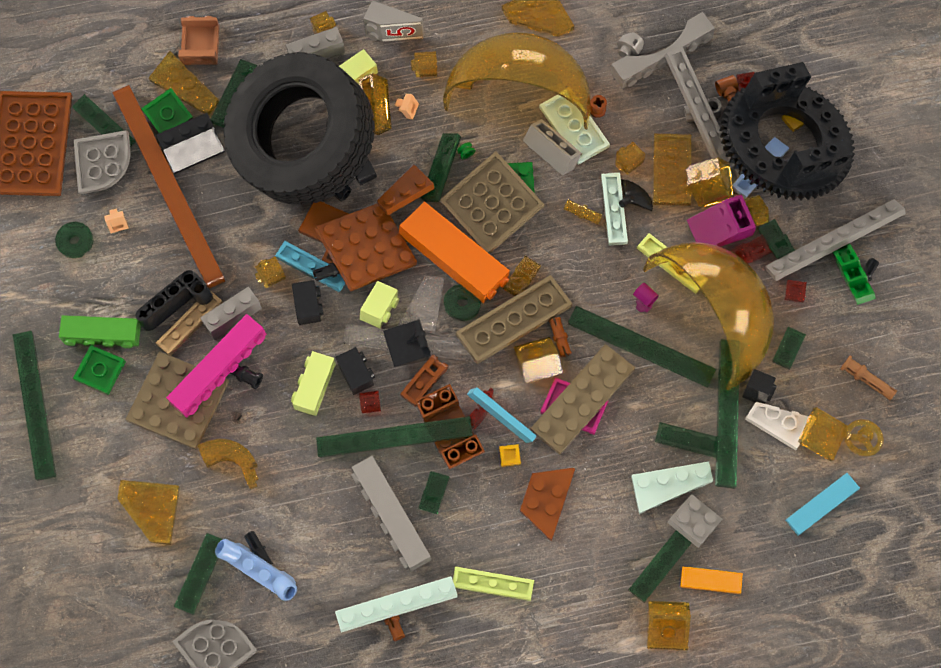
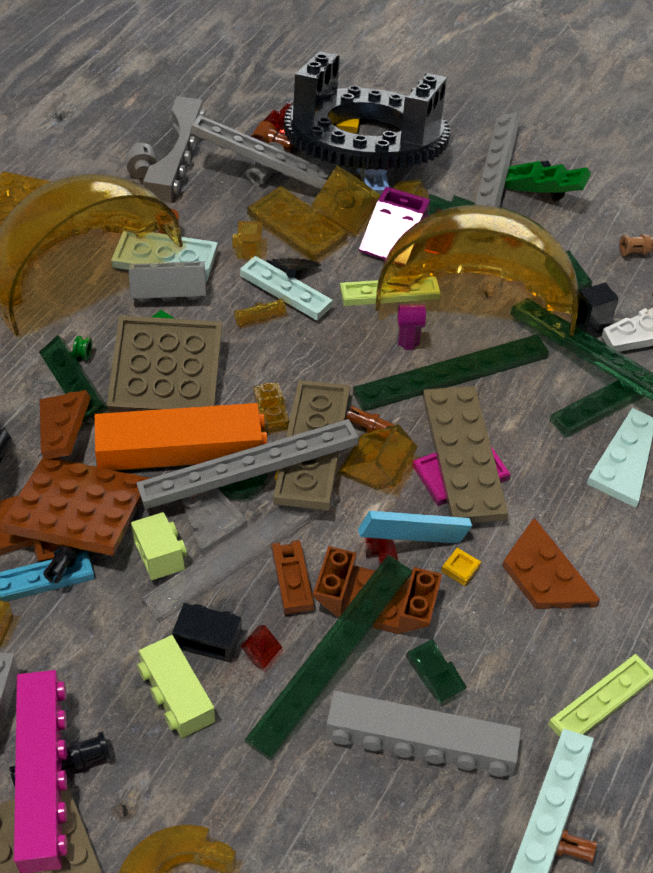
camera: 55 degrees left, 20 degrees down
(306, 302) = (70, 614): black brick -> none
(407, 343) = (233, 550): black plate -> none
(464, 302) = (247, 464): none -> light grey plate

